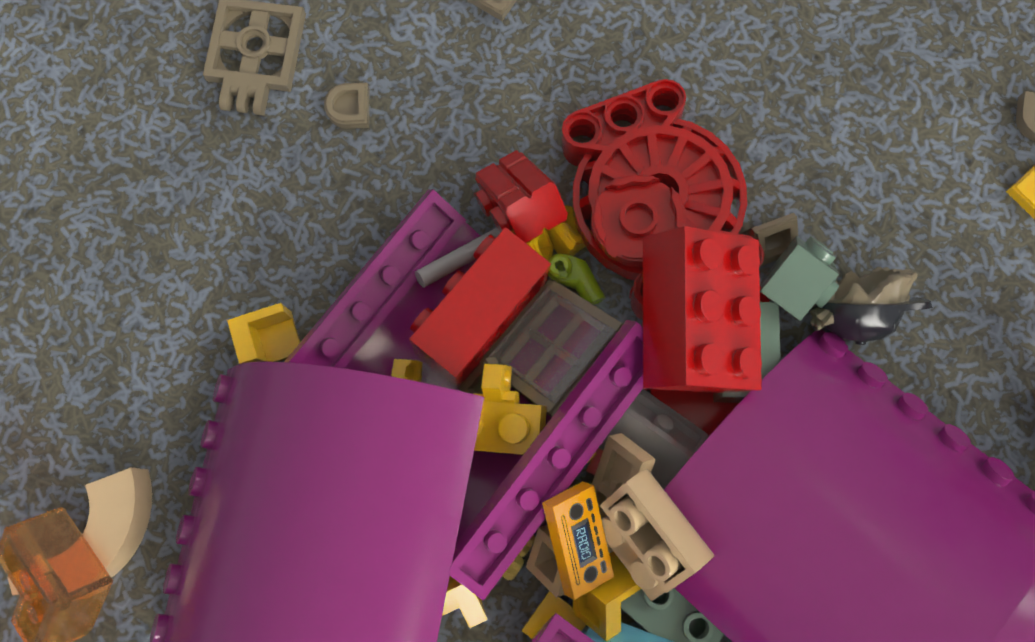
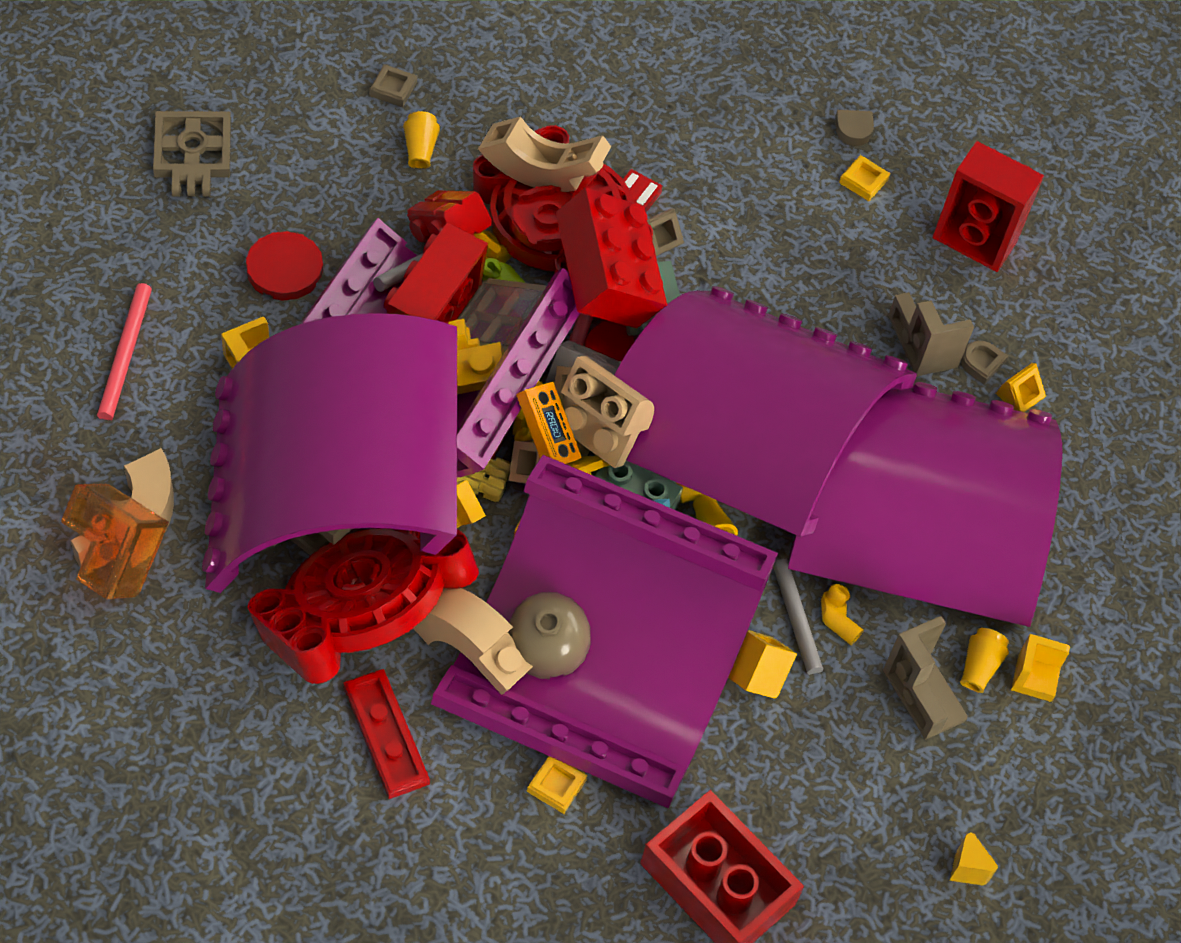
camera: 25 degrees left, 20 degrees down
(130, 312) = (124, 352): none -> coral bar
(326, 221) = (284, 265): none -> red tile
(348, 105) = (284, 180): dark tan tile -> none
(512, 71) = (421, 136): none -> yellow cone
(644, 140) = (538, 161): none -> tan arch
(760, 174) = (642, 189): none -> tile
(802, 277) = (685, 242): sand green brick -> none
(869, 305) = (745, 265): hair -> none

